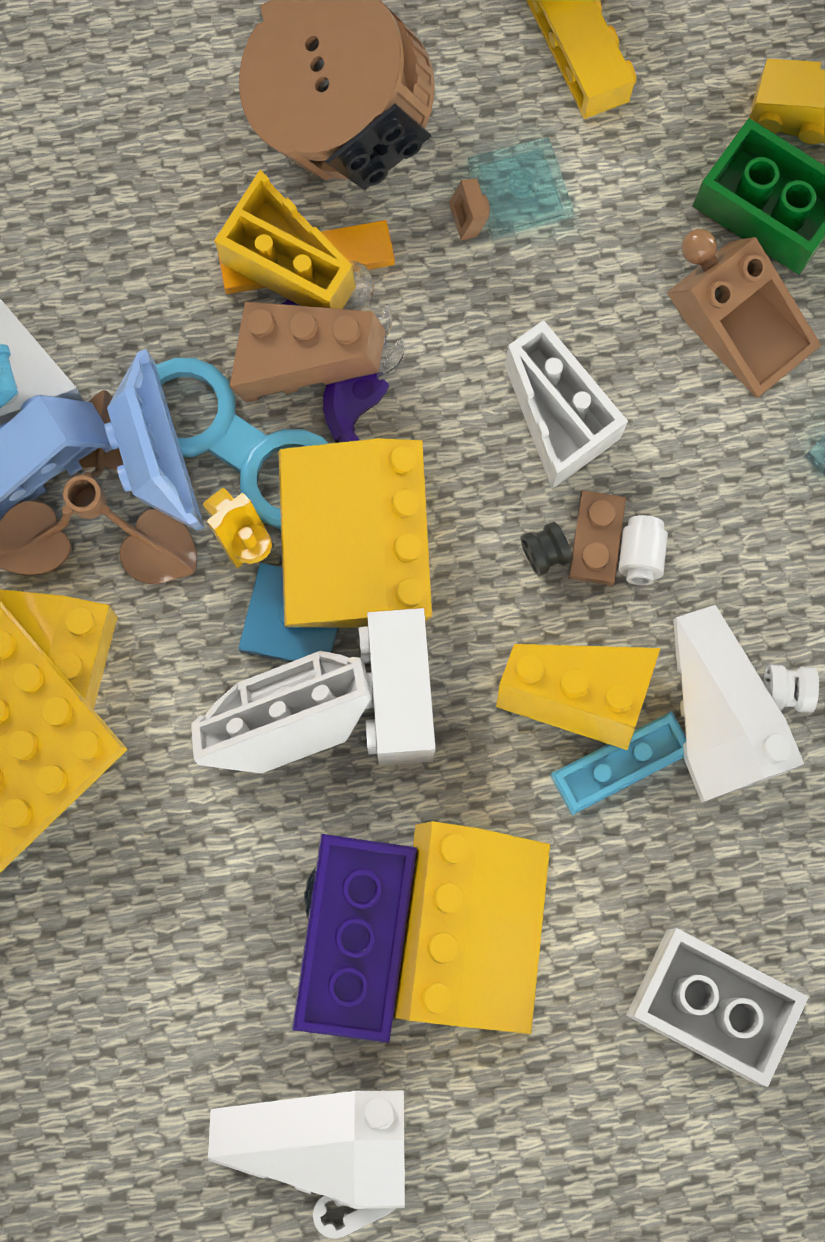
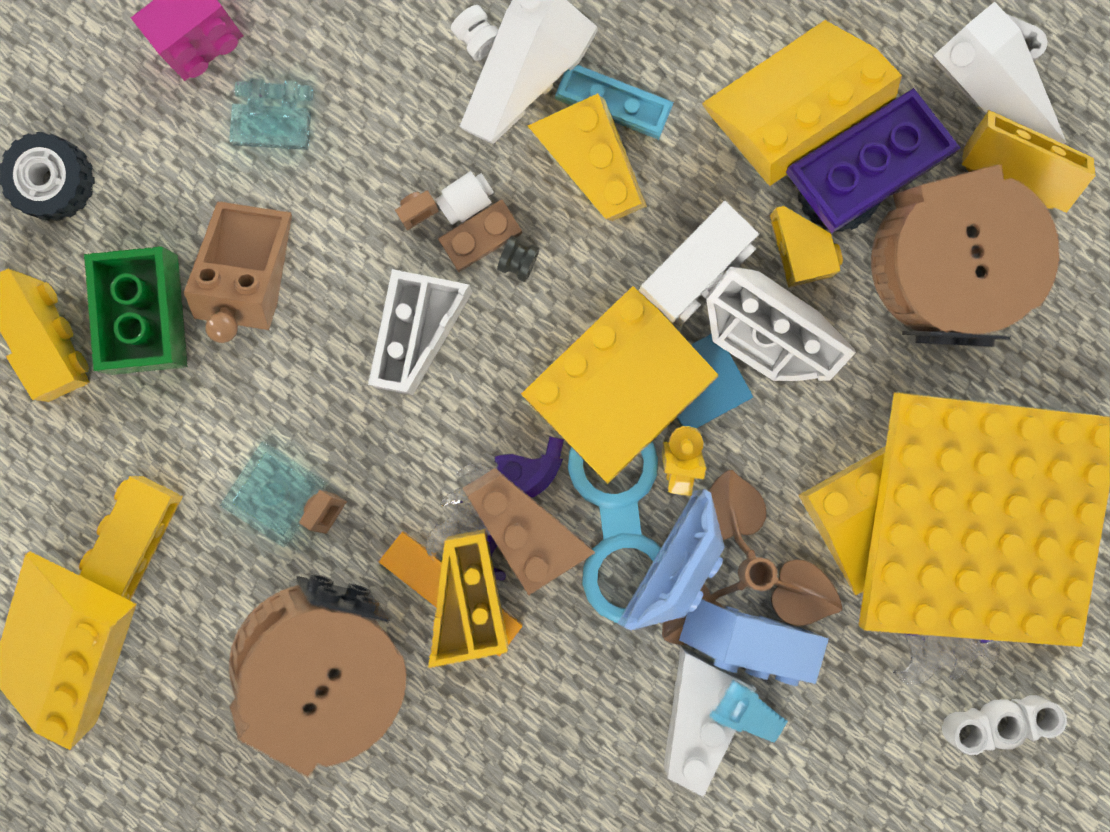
camera: 125 degrees left, 10 degrees up
(187, 927) = (965, 257): none -> medium nougat piece
(222, 1096) = (1038, 162): none -> yellow brick
(328, 808) = (804, 248): none -> yellow slope
(669, 497) = (416, 208): none -> medium nougat plate

